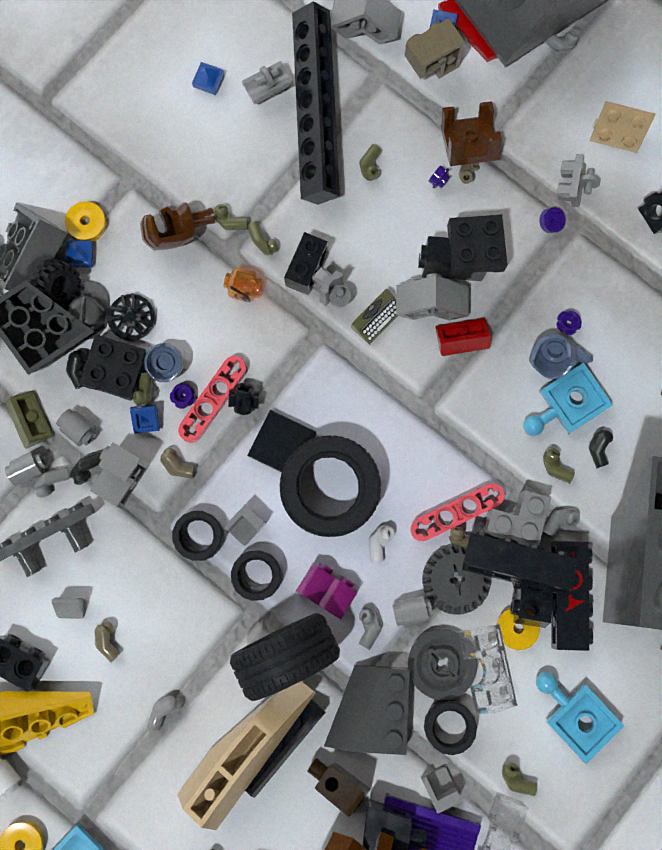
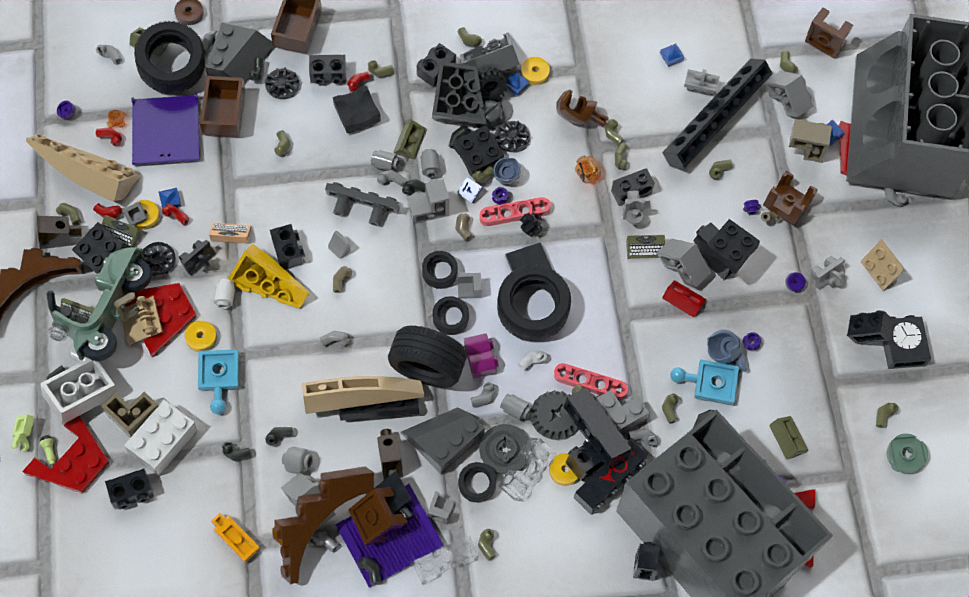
camera: 40 degrees right, 15 degrees down
(565, 719) = (559, 536): medium azure plate -> none

